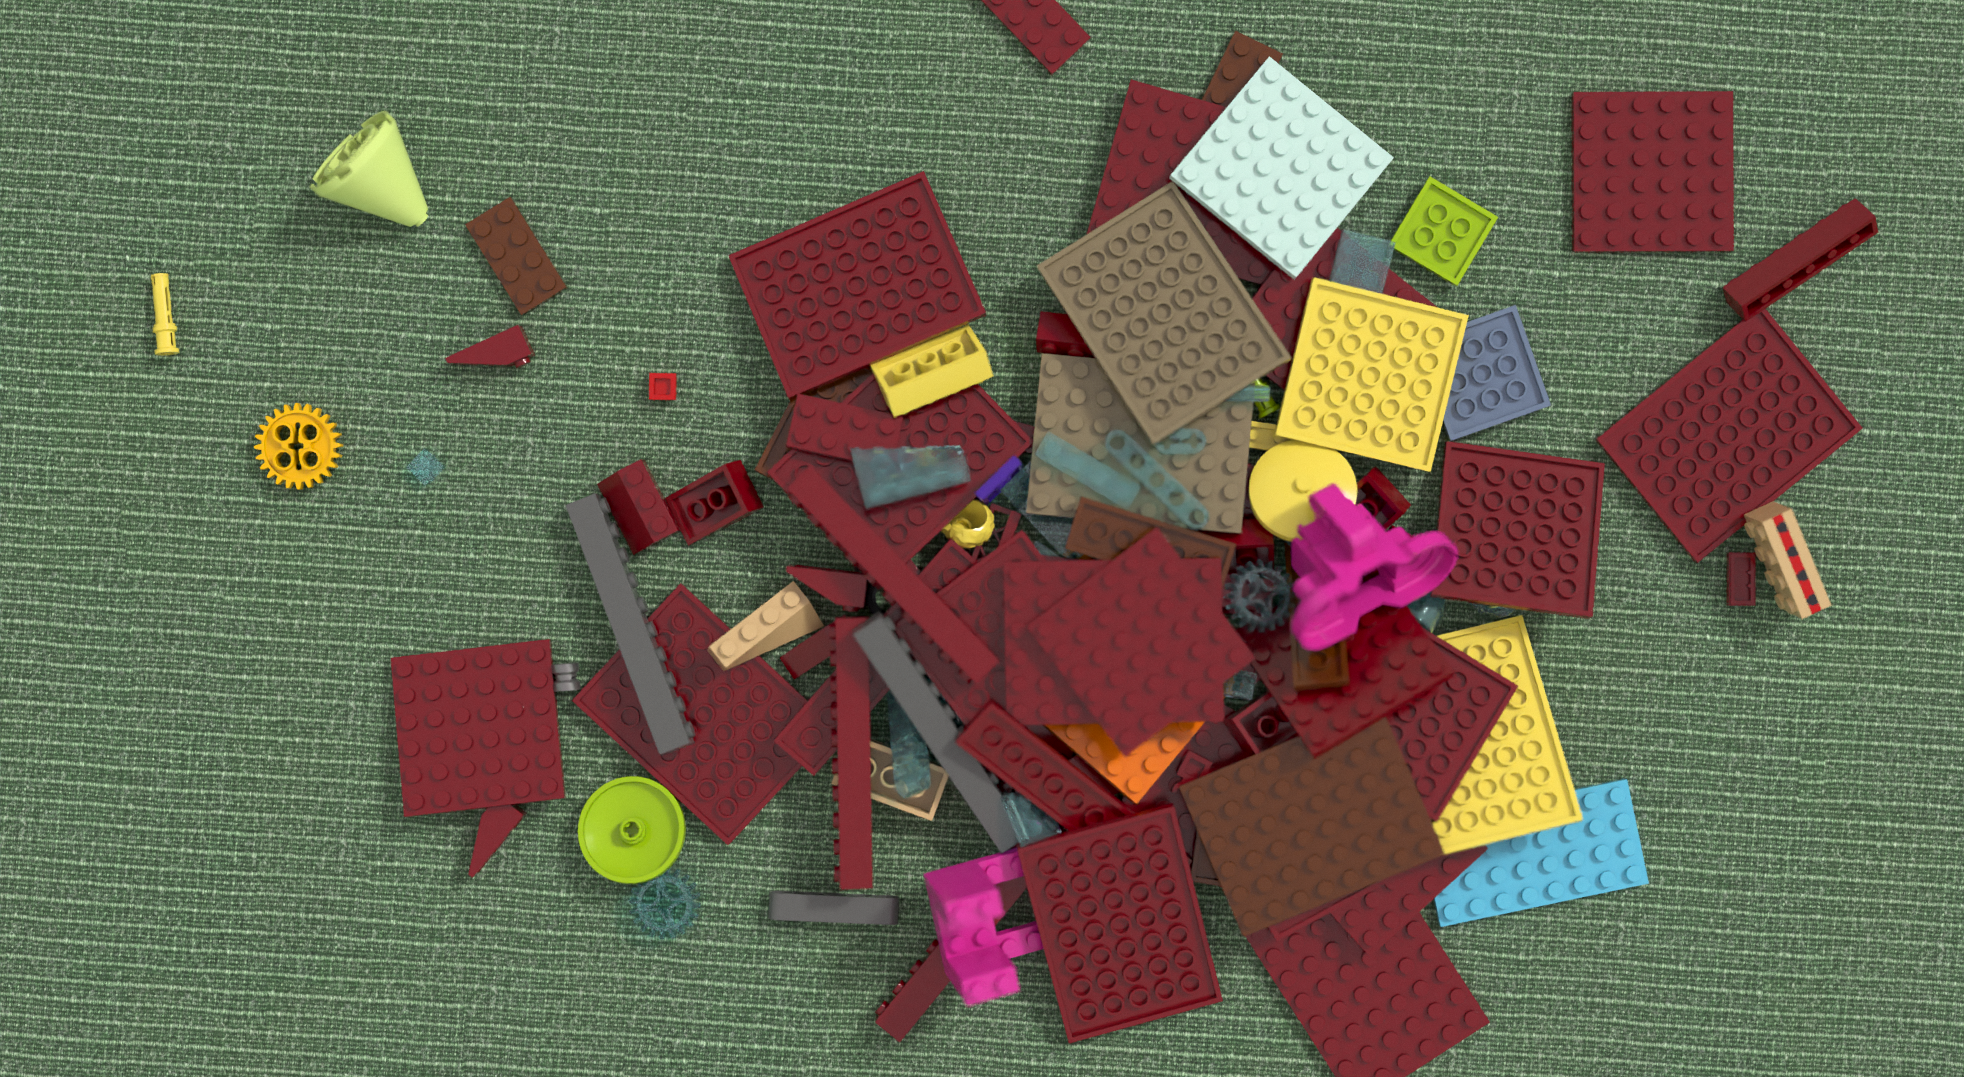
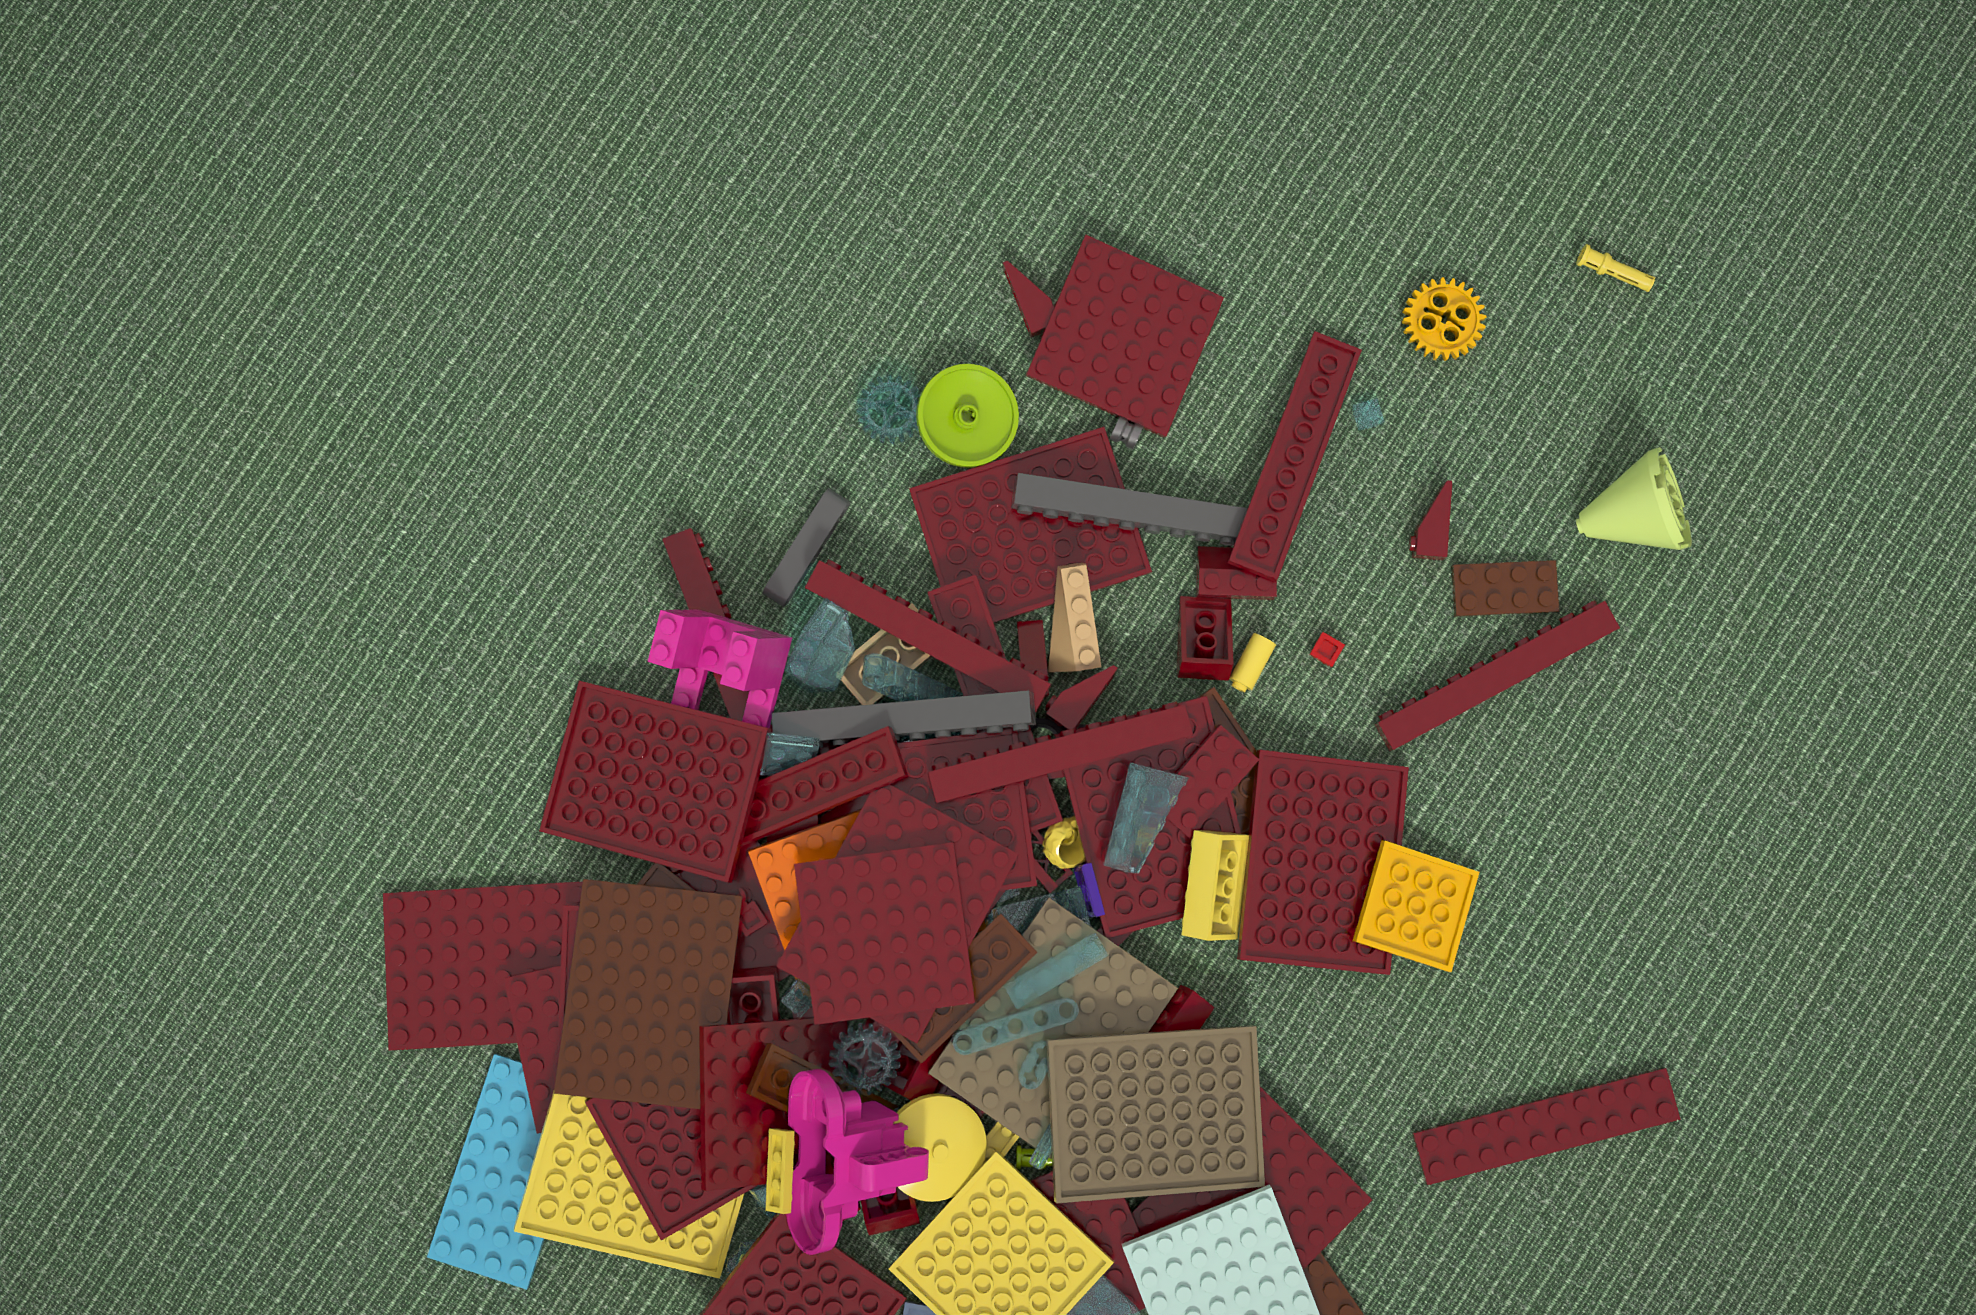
camera: 120 degrees right, 5 degrees down
(502, 512) = (1294, 456): none -> dark red plate
(600, 220) = (1496, 676): none -> dark red brick
(713, 447) = (1252, 662): none -> light yellow brick
(849, 181) = (1416, 906): none -> yellow plate
(919, 840) = (822, 650): none -> clear light blue wedge
(1399, 615) = (780, 1170): none -> light yellow plate

